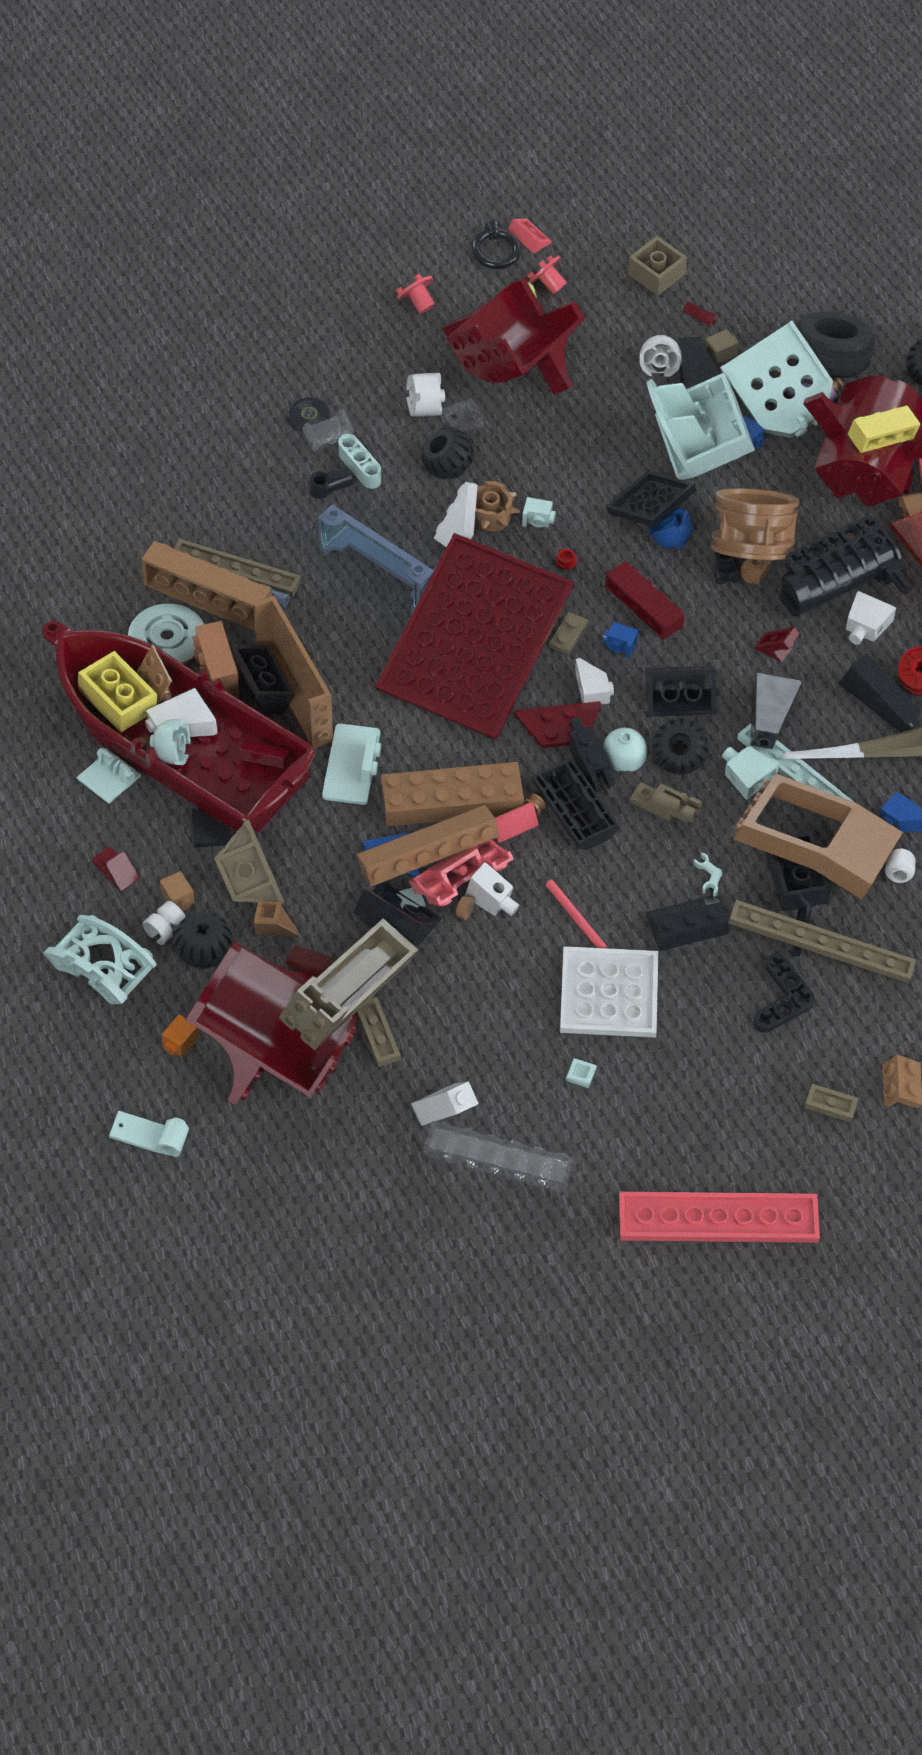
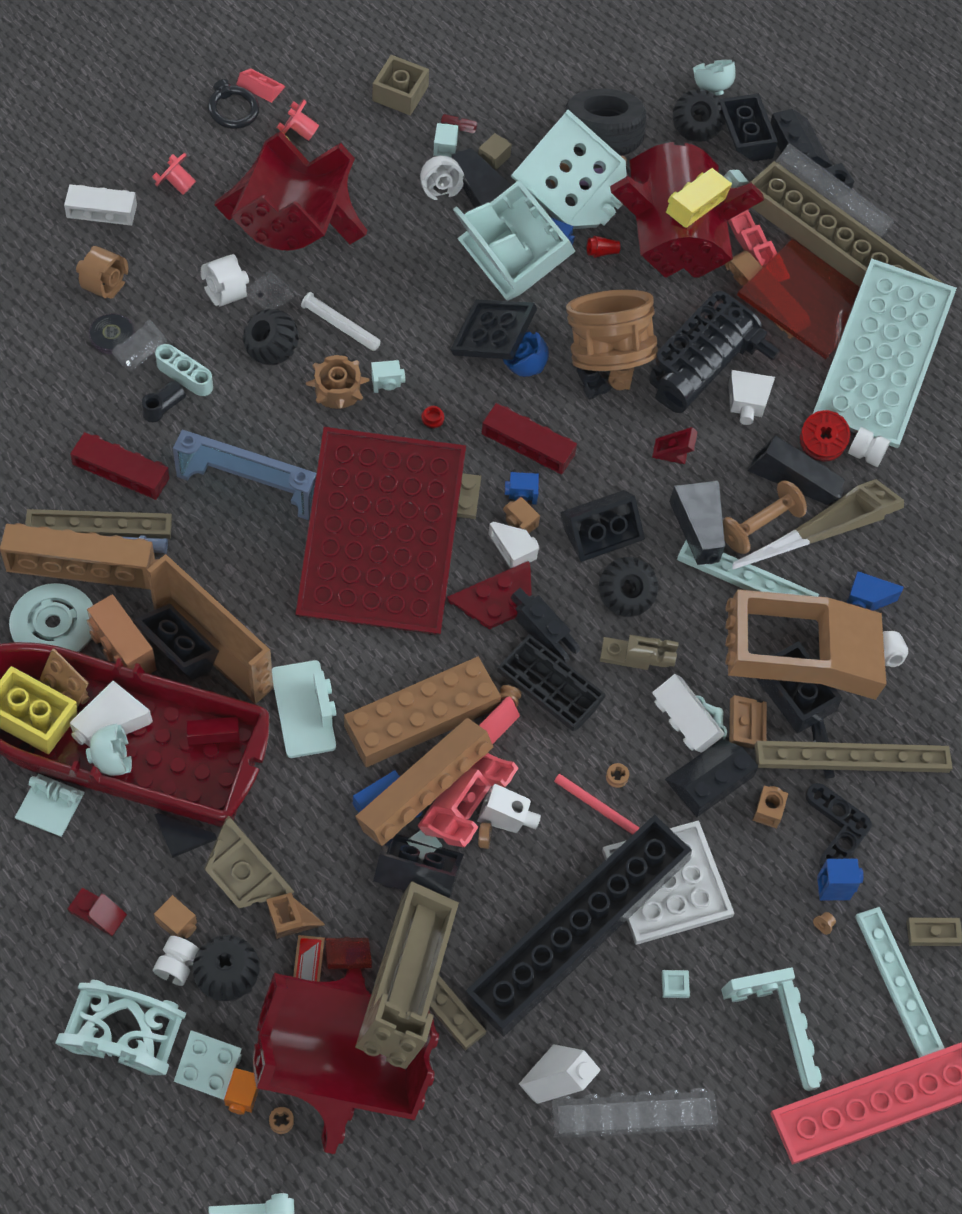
camera: 25 degrees left, 5 degrees up
(159, 1007) = (207, 1064): none -> light aqua hinge
(206, 1063) = (280, 1111): none -> medium nougat bush
(272, 525) = (120, 465): none -> dark red brick
(278, 951) = (309, 957): none -> slope
(320, 355) = (102, 267): none -> medium nougat brick
(341, 303) = (100, 204): none -> white brick
(459, 516) = (314, 408): white slope -> none
(513, 995) = (578, 925): none -> black brick
(516, 457) = (340, 321): none -> white axle
(607, 901) = (623, 770): none -> medium nougat bush
(609, 662) = (521, 515): none -> medium nougat brick
(625, 749) = (575, 606): light aqua cylinder -> none
(657, 1092) = (796, 1022): none -> light aqua bracket
(679, 324) = (445, 140): none -> light aqua brick
(686, 863) = (687, 714): none -> white brick
(725, 967) = (767, 815): none -> medium nougat brick
(735, 1066) = (824, 922): none -> medium nougat piece
(739, 885) = (747, 721): none -> medium nougat plate
(748, 769) = (704, 591): light aqua torso -> none
(760, 1032) = (839, 879): none -> blue brick
(781, 1131) = (899, 982): none -> light aqua tile
(787, 455) = (602, 246): none -> red cone
(863, 712) = (790, 499): none -> medium nougat hose

